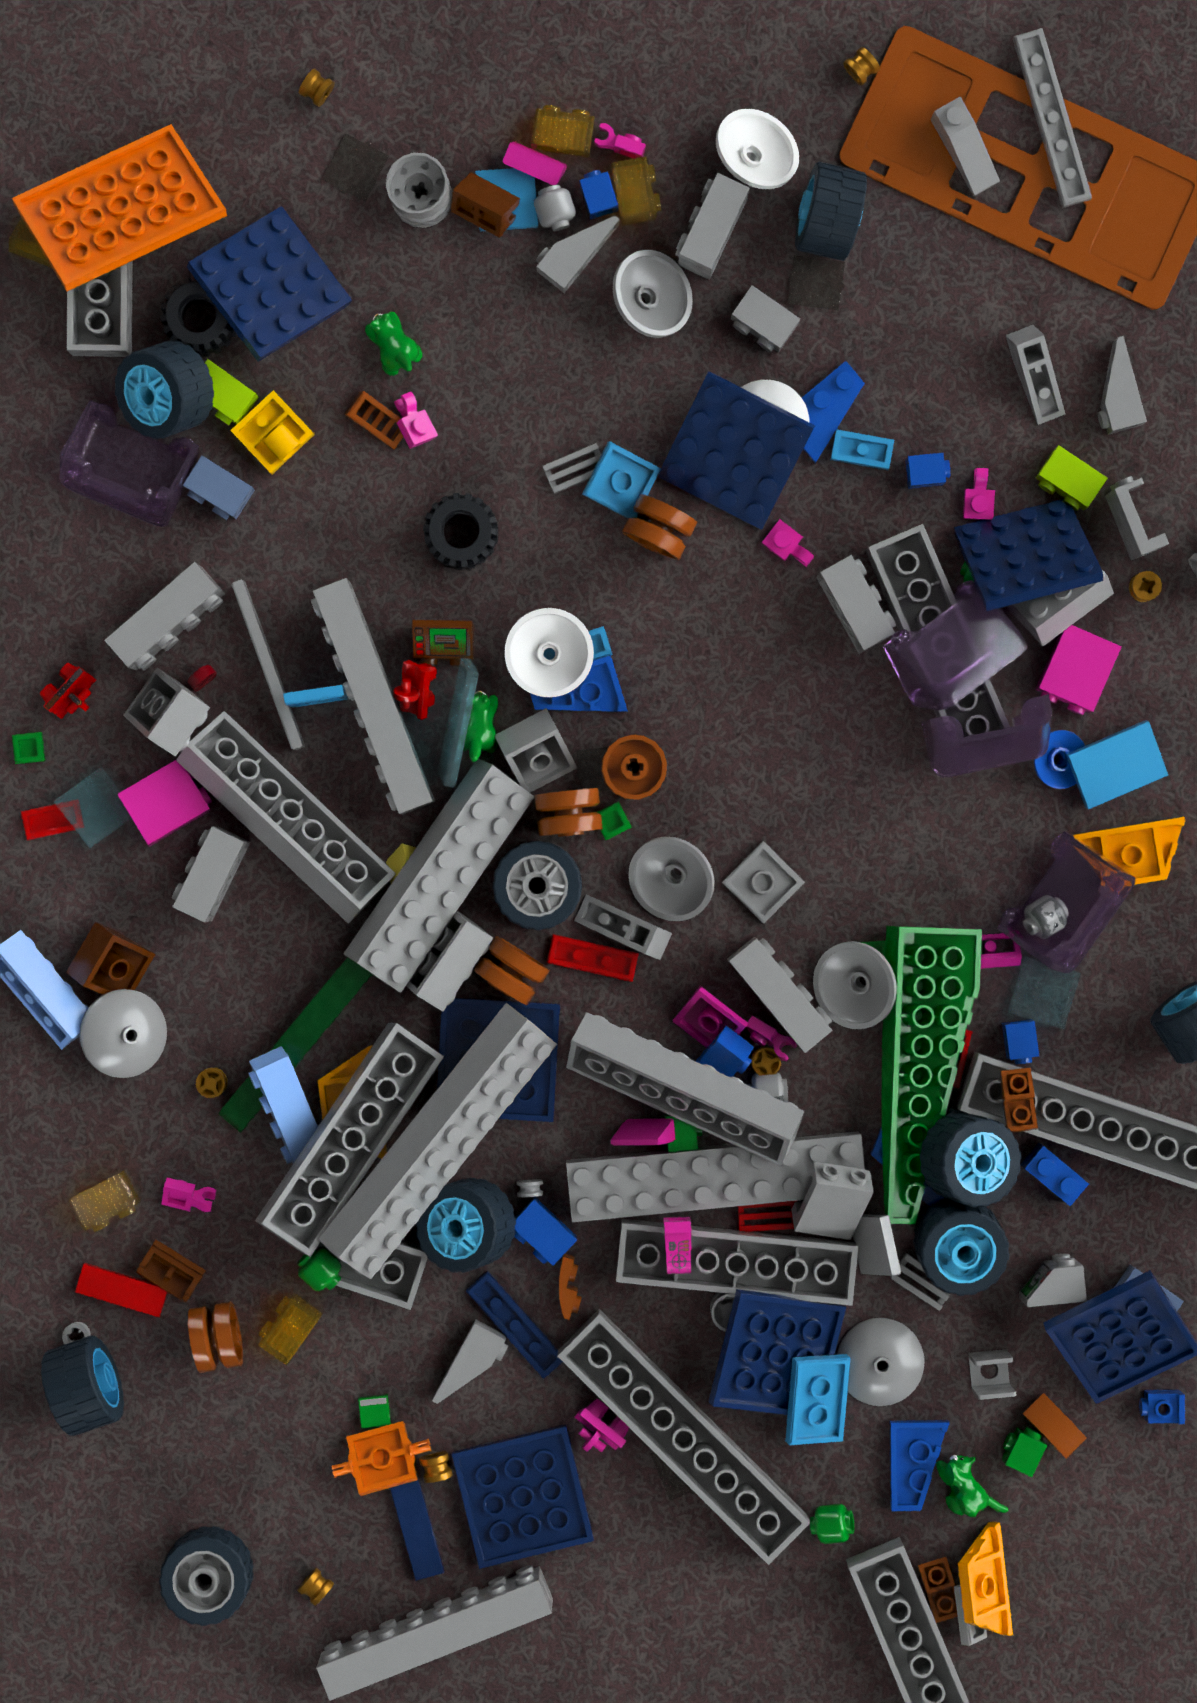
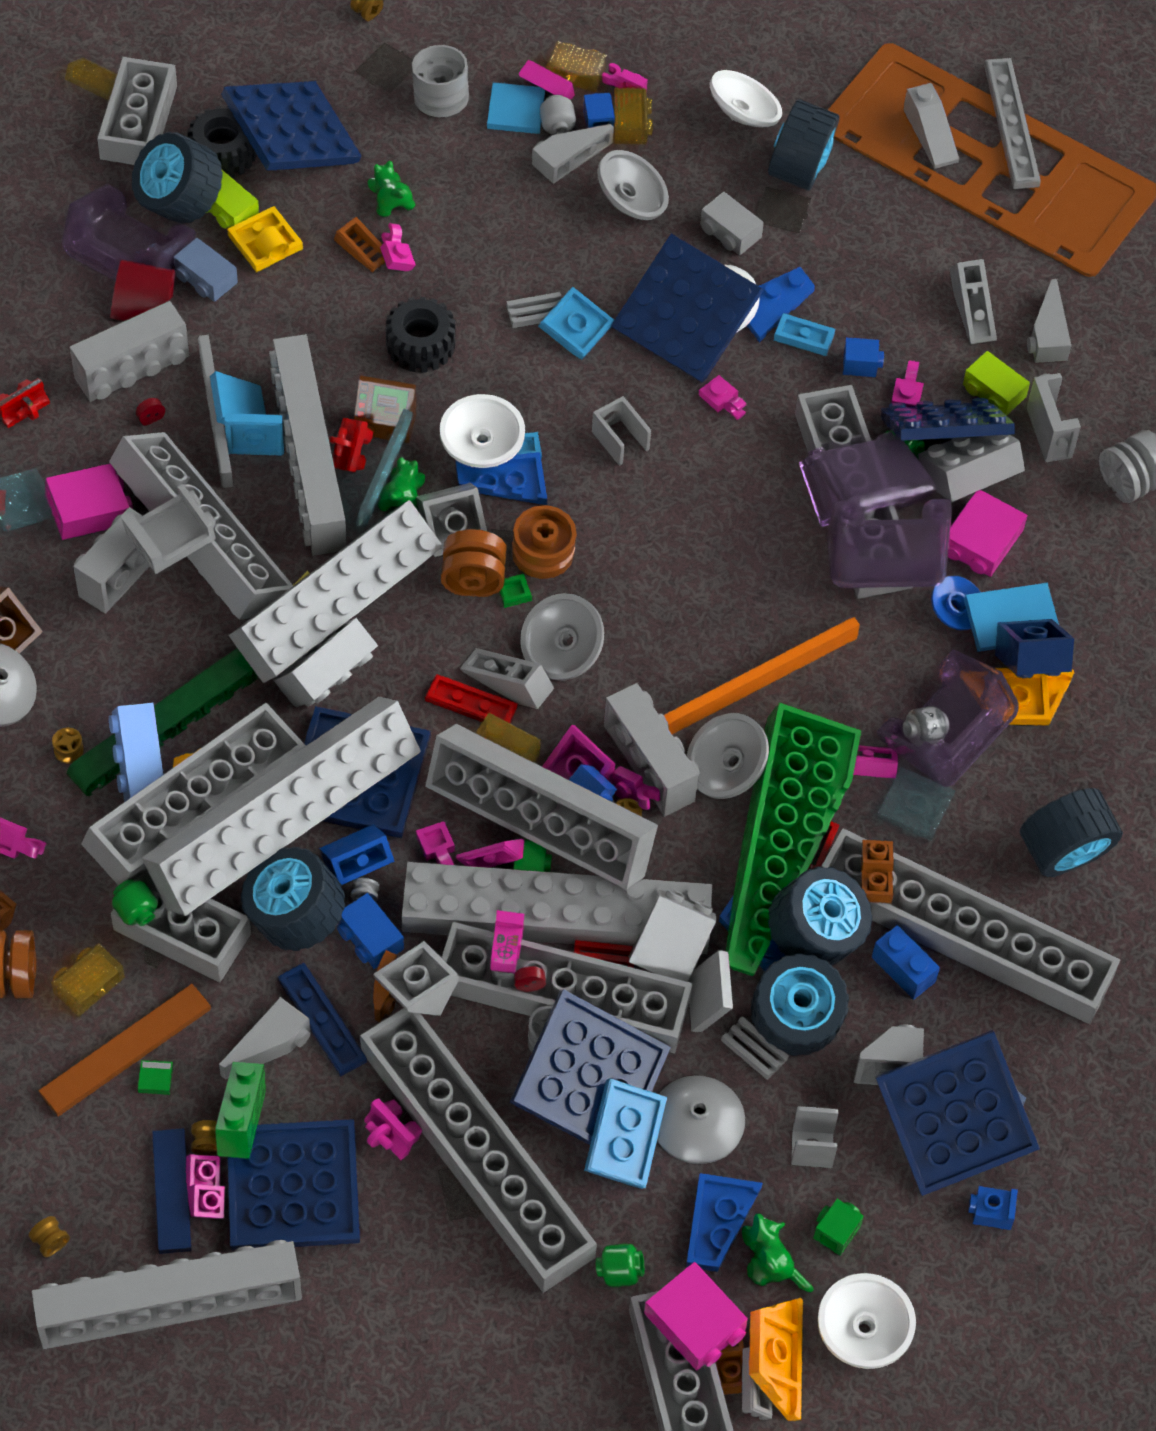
camera: 10 degrees right, 30 degrees down
(119, 207) = (173, 46): orange plate -> none
(161, 537) = (140, 289): none -> dark red slope
(166, 712) = (112, 417): light grey brick -> none
(259, 855) = (171, 530): none -> light grey panel
(291, 656) = (235, 396): none -> dark azure tile
(340, 1388) = (124, 1050): none -> dark orange tile
(381, 1458) = (152, 1116): orange plate -> none
(443, 1514) = (204, 1187): none -> dark pink slope
(462, 1445) = (240, 1110): none -> green brick
(484, 204) = (494, 102): reddish brown hinge -> none
(509, 973) = (390, 678): dark orange wheel -> none
(513, 882) = (430, 622): wheel -> none
(515, 1156) = (357, 854): none -> blue brick
(588, 1124) = (436, 843): none -> dark pink plate
(600, 1295) = (419, 980): none -> light grey slope
(638, 1005) = (510, 737): none -> clear yellow brick
(657, 530) = (605, 354): dark orange wheel -> none
(697, 597) = (629, 417): none -> light grey piece
(706, 1279) = (529, 979): none -> dark red tile
(711, 225) = (696, 144): light grey brick -> none
(763, 882) = (652, 663): light grey tile -> none
(856, 603) = (777, 440): light grey brick -> none
(861, 65) = (848, 60): pearl gold wheel -> none
(871, 883) = (762, 675): none -> orange tile
(911, 1586) = (696, 1317): none -> dark pink brick
(1020, 1041) = (888, 828): blue brick -> none
(1054, 1426) = (879, 1211): dark orange slope -> none
(1065, 1563) = (868, 1301): none -> white dish
(1139, 589) = (1052, 485): pearl gold wheel -> none
(1144, 809) = (1034, 647): none -> dark blue brick

